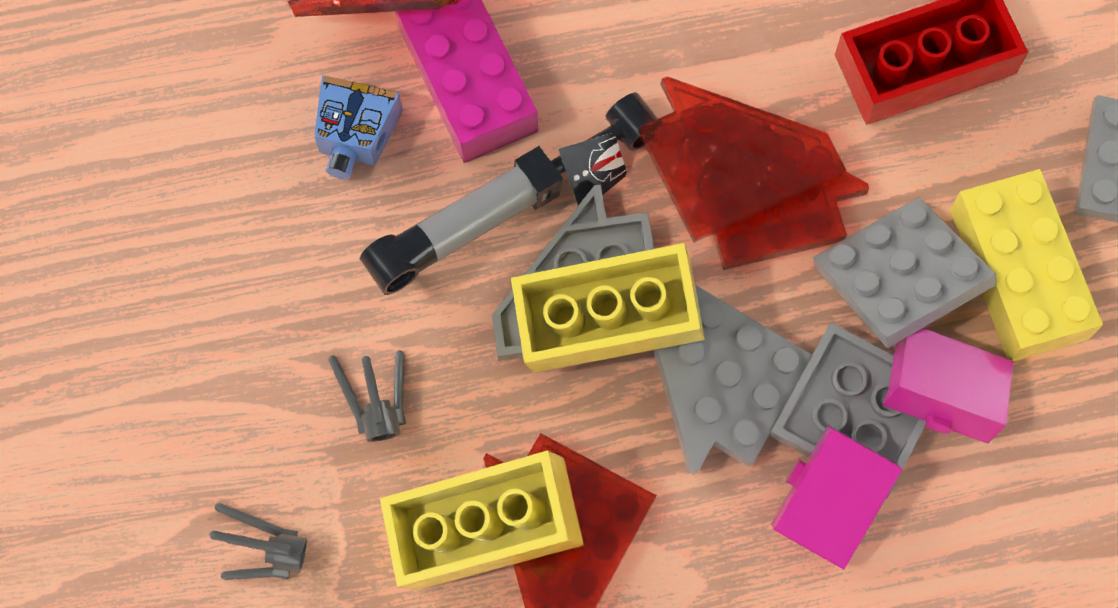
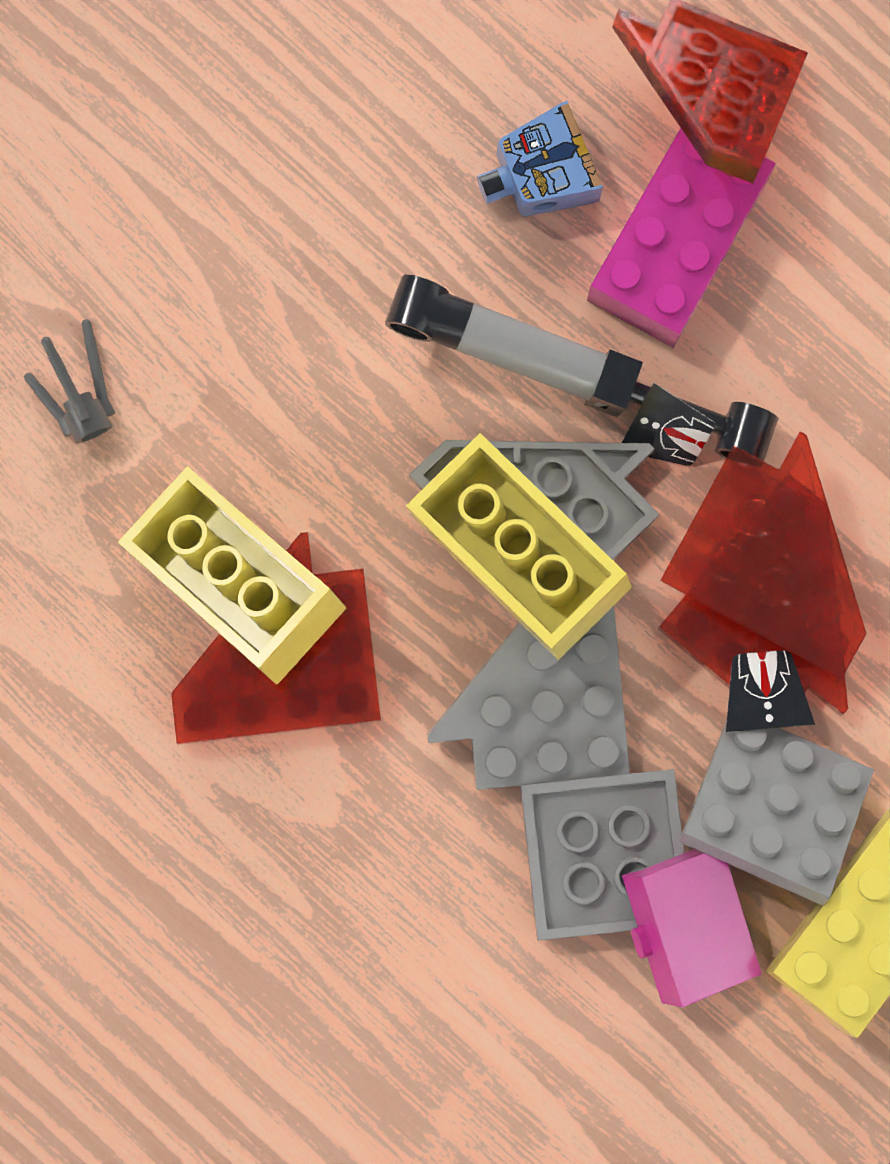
camera: 50 degrees right, 10 degrees up
(380, 419) = (270, 408): dark grey plant -> none
(820, 226) = (766, 693): none -> black sticker
(835, 496) = (497, 889): dark pink container -> none

